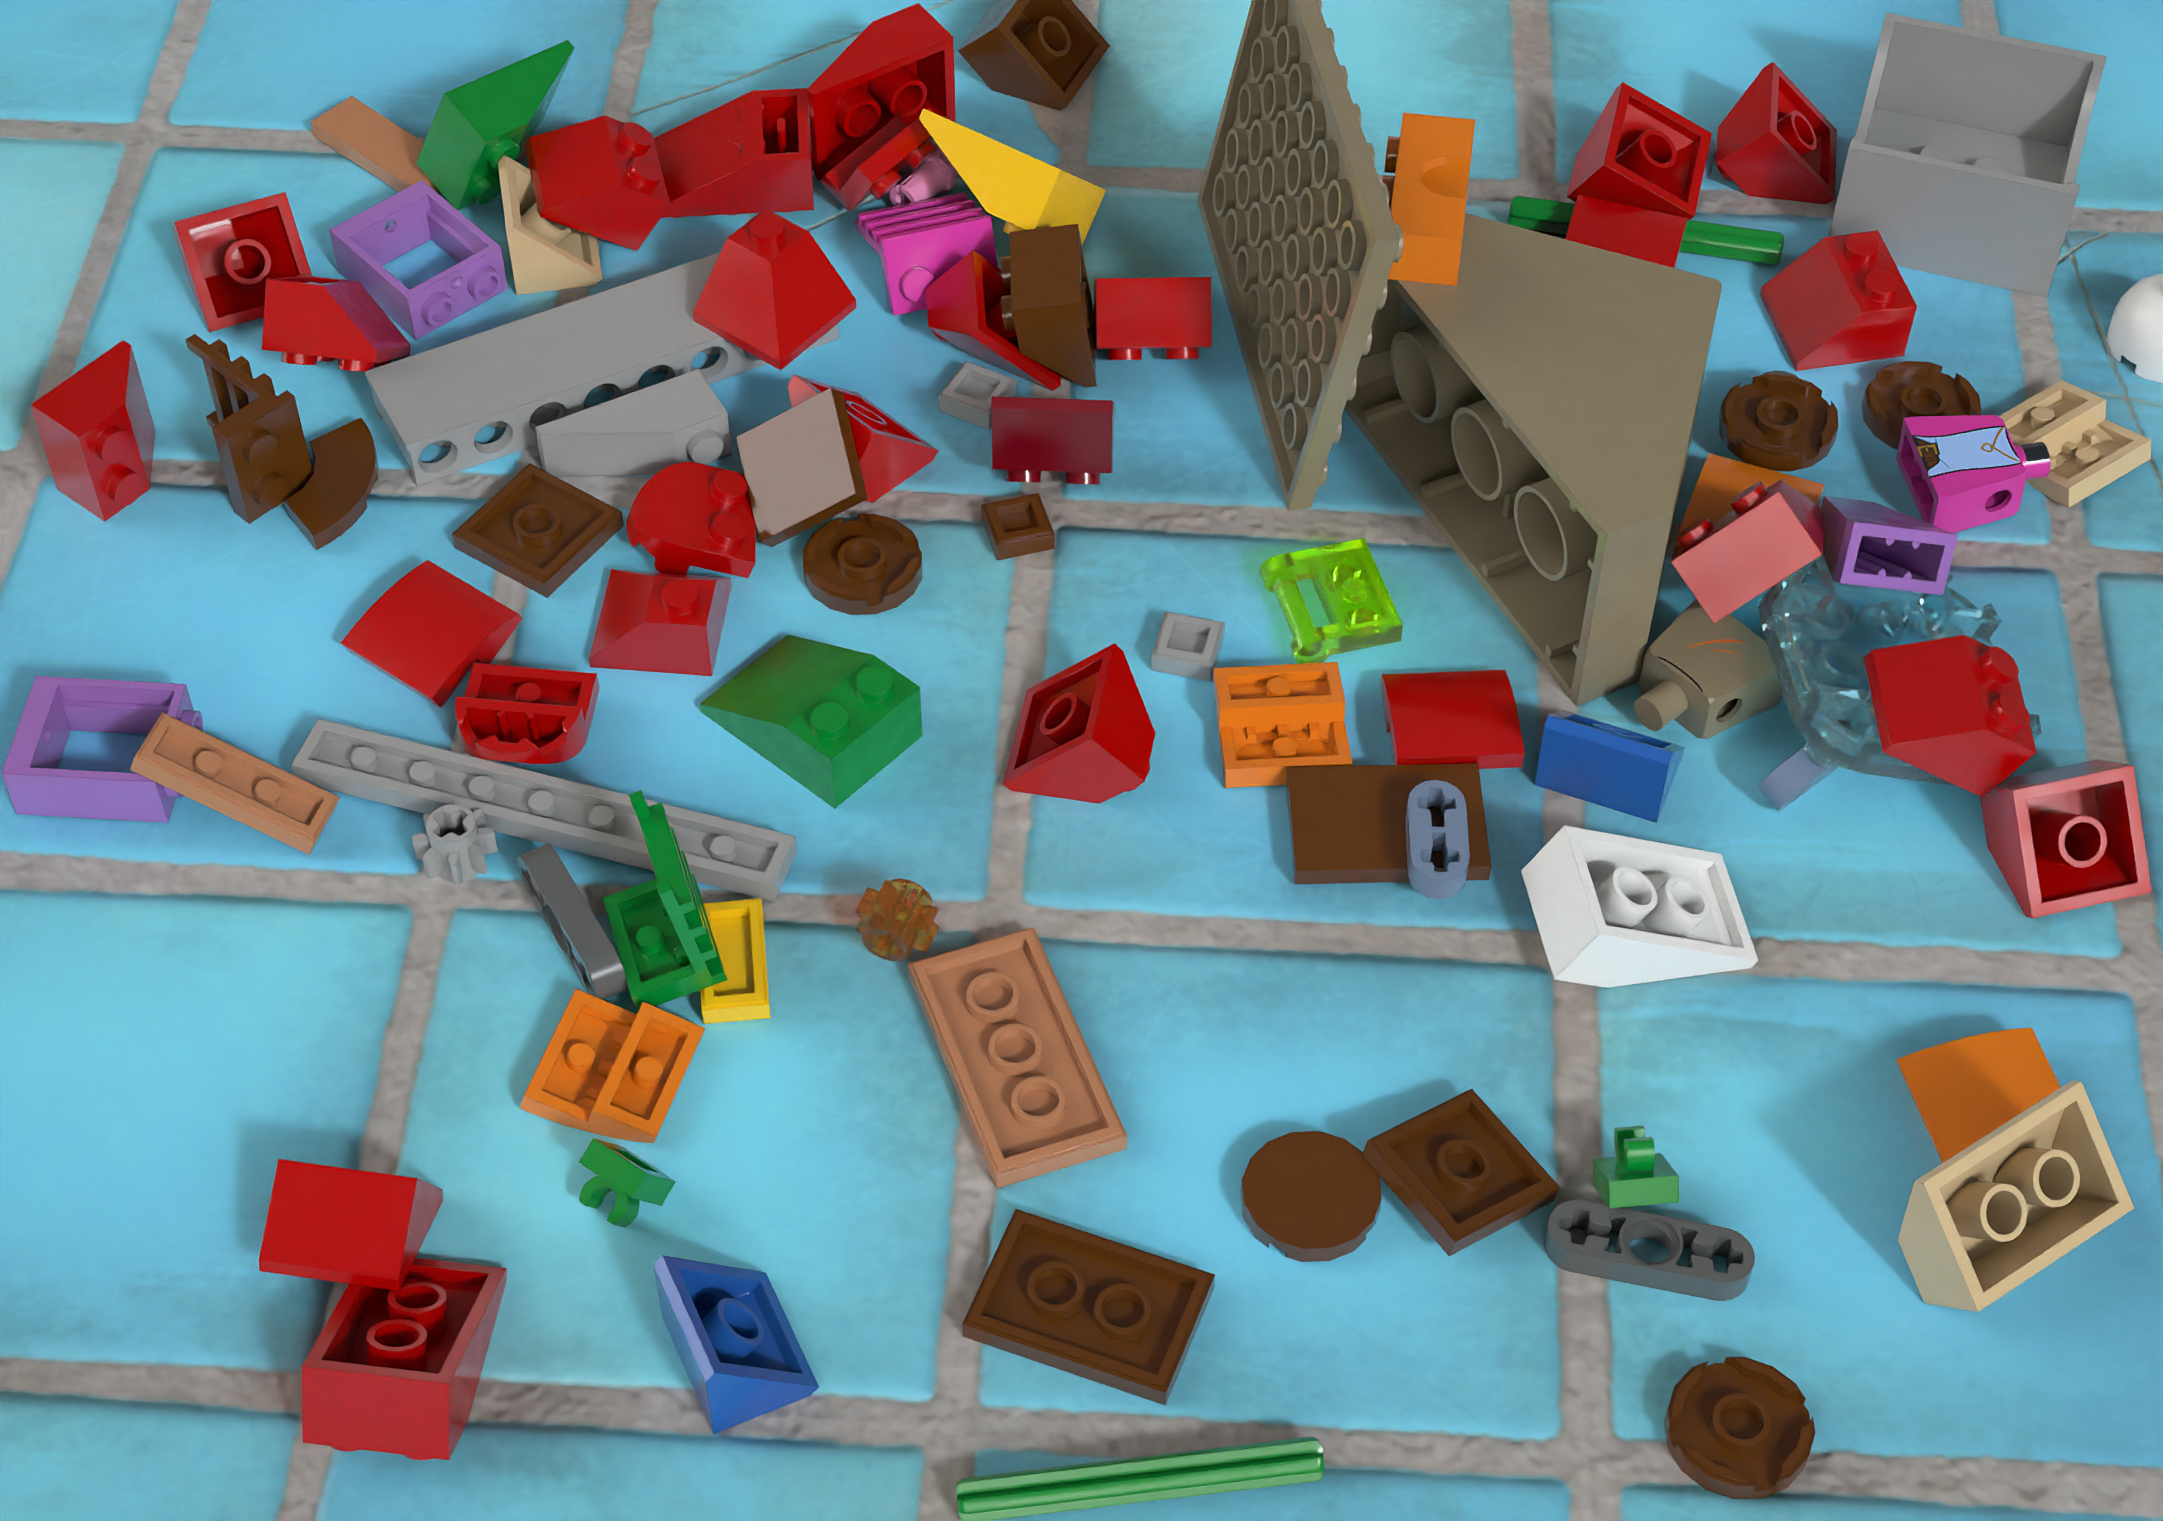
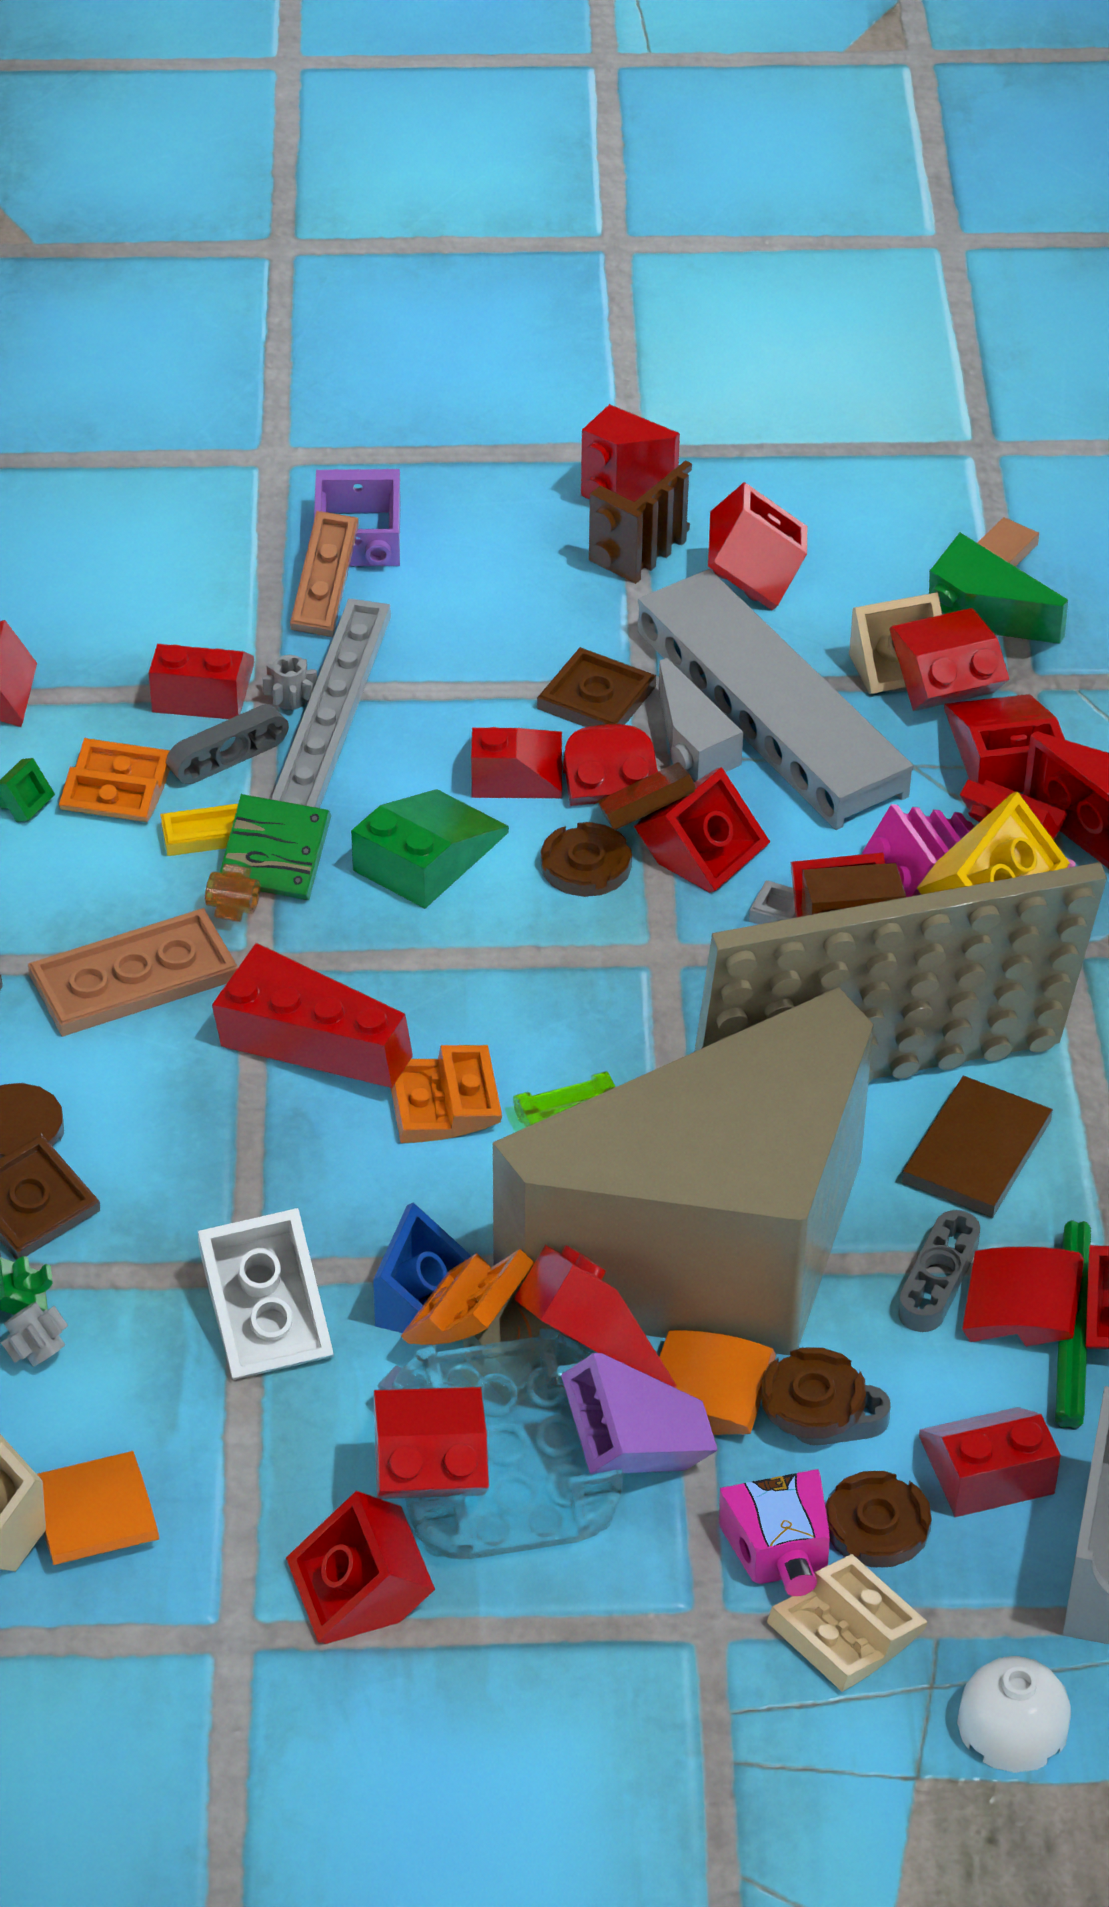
camera: 85 degrees right, 5 degrees down
(234, 253) = (827, 498): red slope -> none
(339, 486) = (609, 588): reddish brown tile -> none
(412, 949) = (199, 681): none -> red slope
(418, 216) = (856, 557): medium lavender window -> none
(431, 631) = (485, 649): red slope -> none
(526, 713) = (404, 699): red slope -> none
(663, 922) = (217, 775): green plate -> none
(773, 291) = (819, 752): red slope -> none
(812, 867) = (278, 843): none -> green tile
(1017, 526) = (637, 939): reddish brown tile -> none
(1052, 436) = (702, 908): dark red slope -> none
(1083, 733) = (409, 978): red slope -> none
(1165, 838) = (310, 1020): none -> red wedge
(1187, 646) = (523, 1041): light grey tile -> none
(1352, 821) = (351, 1157): reddish brown tile -> none
(1429, 195) = (884, 1009): orange arch -> none
(1450, 839) = (320, 1170): sand blue beam -> none
(1453, 718) = (451, 1184): red slope -> none
(1692, 681) = (467, 1300): none -> orange slope
(1711, 1141) = (34, 1334): none -> light grey gear

